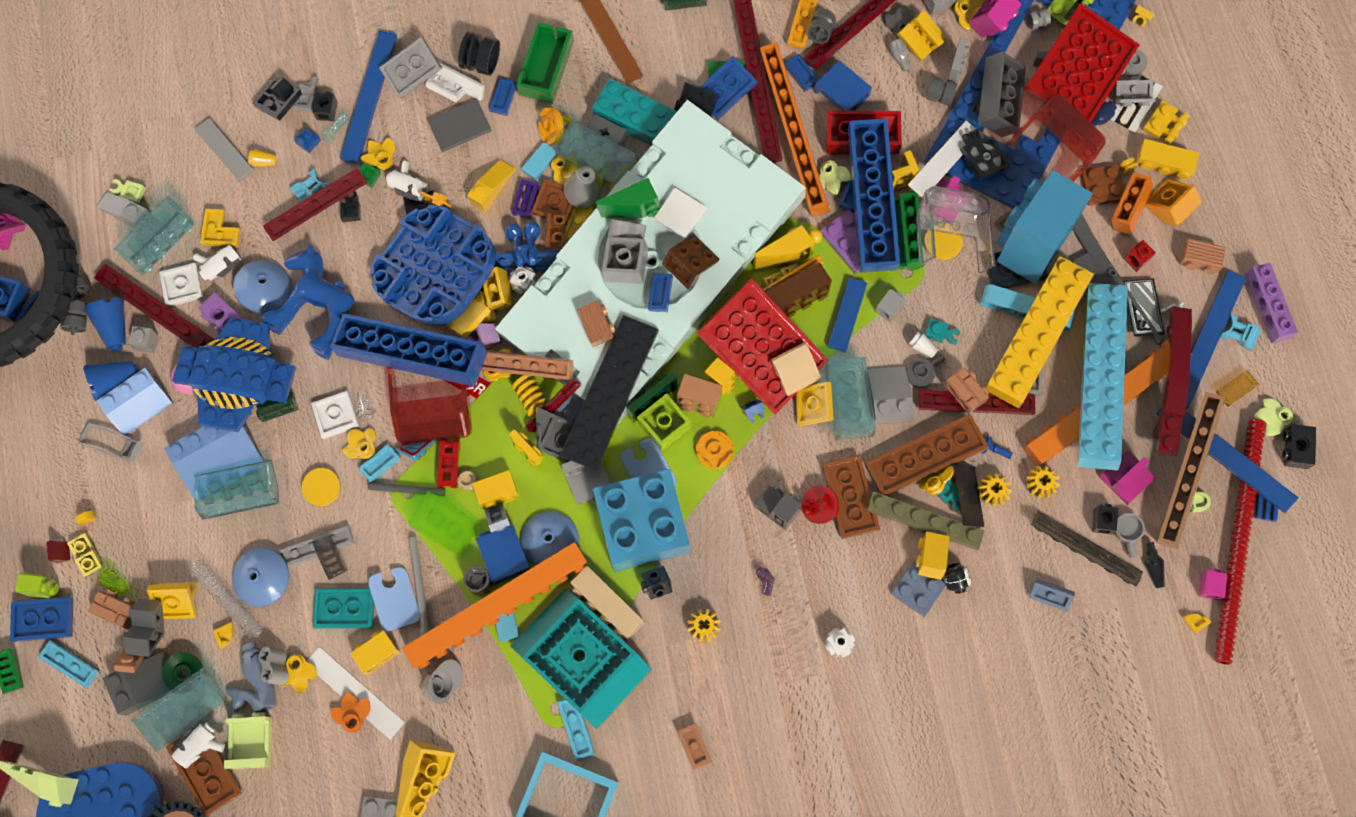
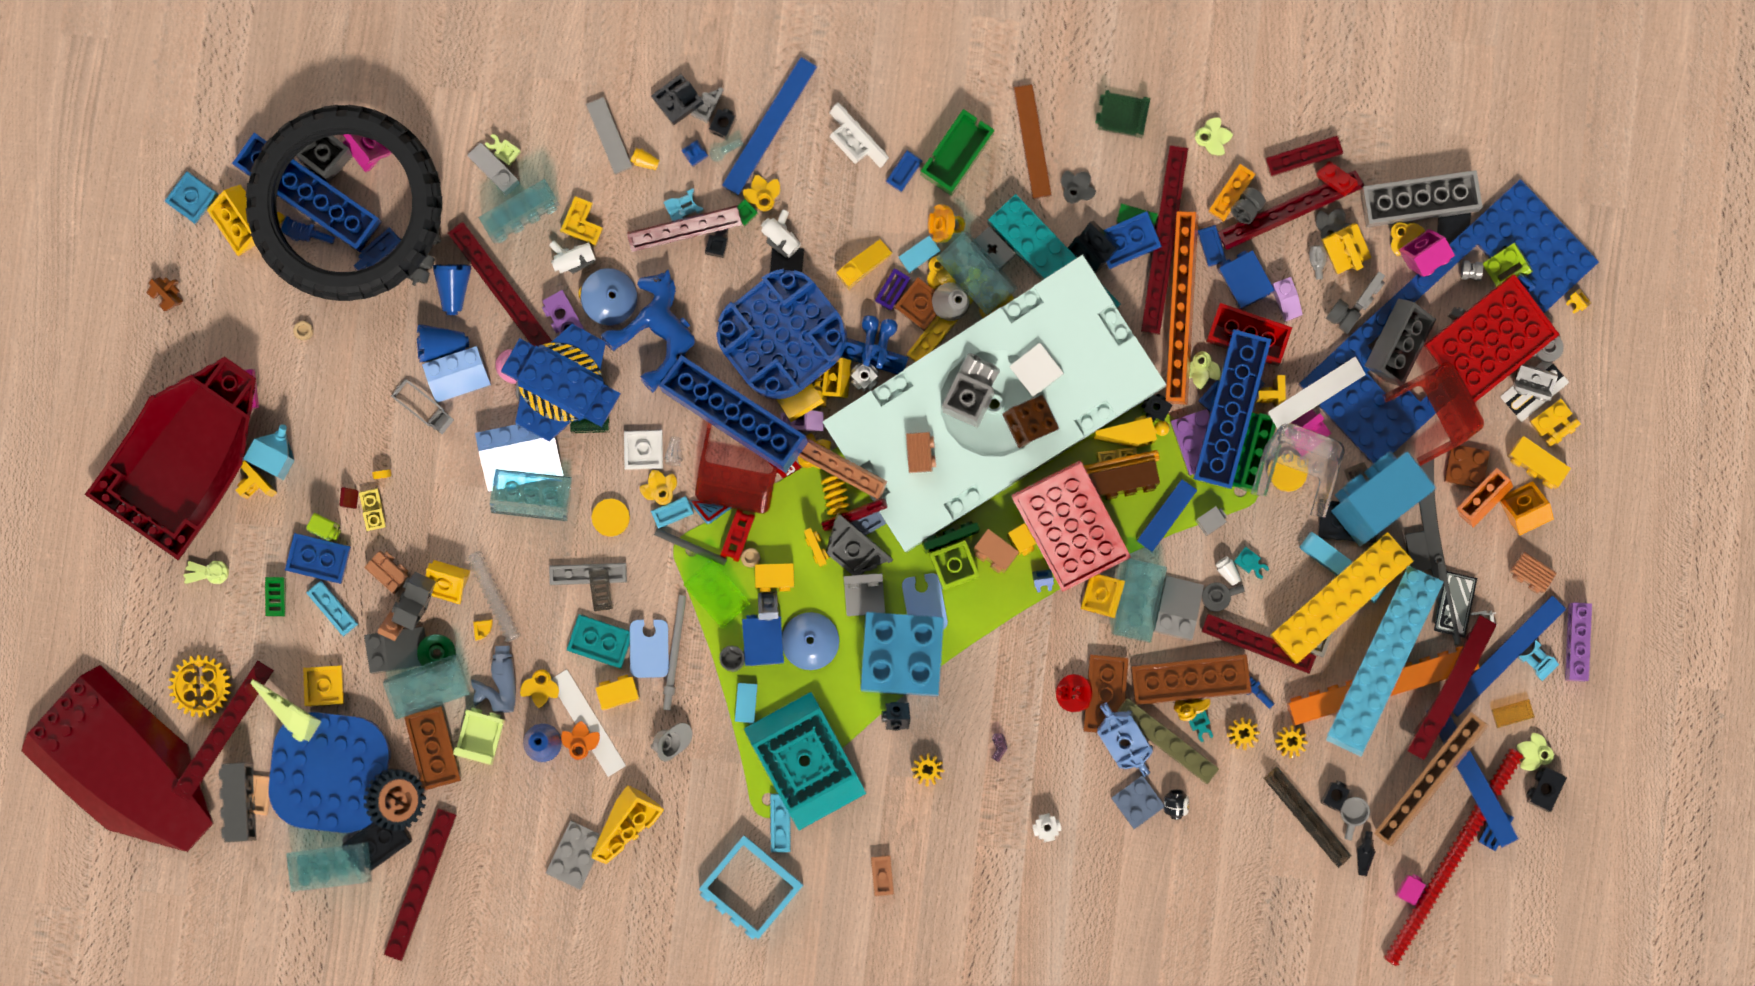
camera: 15 degrees right, 10 degrees up
(77, 743) = (323, 686): none -> yellow plate
(112, 581) = (392, 545): clear neon green cone -> none
(143, 339) = (480, 313): light grey brick -> none
(181, 284) = (530, 266): white tile -> none
(194, 743) = (432, 723): white piece -> none
(270, 580) = (542, 589): medium blue dish -> none
(273, 666) = (522, 675): light grey axle -> none
(314, 727) = (550, 744): none -> blue cone
(410, 68) = (820, 113): light grey plate -> none
(436, 199) = (805, 266): light orange plate -> none
(459, 125) = (851, 188): dark grey tile -> none
(479, 53) = (894, 121): black wheel -> none
(494, 605) = (742, 687): orange brick -> none
(555, 230) = (911, 336): dark orange hips -> none
(607, 603) = (845, 720): tan brick -> none
(609, 393) = (911, 523): black plate -> none
(631, 202) = (999, 346): green slope -> none
(660, 292) = (991, 441): blue tile -> none
(663, 61) = (1079, 184): none -> dark grey plate
(714, 449) = (993, 606): light orange tile -> none
(778, 507) = (1034, 682): dark grey brick -> none
(796, 369) = (1096, 557): tan slope -> none
(803, 217) = (1163, 407): none -> black brick
(876, 519) = (1122, 726): none -> medium blue plate
(885, 92) = (1287, 299): none -> lavender slope
(933, 555) = (1161, 777): yellow brick -> none
(967, 390) = (1251, 631): nougat brick -> none
(969, 495) = (1216, 731): black sticker -> none
(983, 154) = (1357, 400): black piece -> none
(1051, 594) = (1258, 849): sand blue plate -> none
(1105, 113) = (1495, 395): dark blue plant -> none
(1128, 165) = (1499, 456): yellow bush -> none
(1129, 478) = (1375, 764): dark pink bracket -> none
(1139, 255) = (1471, 552): red brick -> none
(1196, 622) = (1382, 918): yellow tile -> none
(1201, 502) = (1432, 809): yellowish green tile -> none

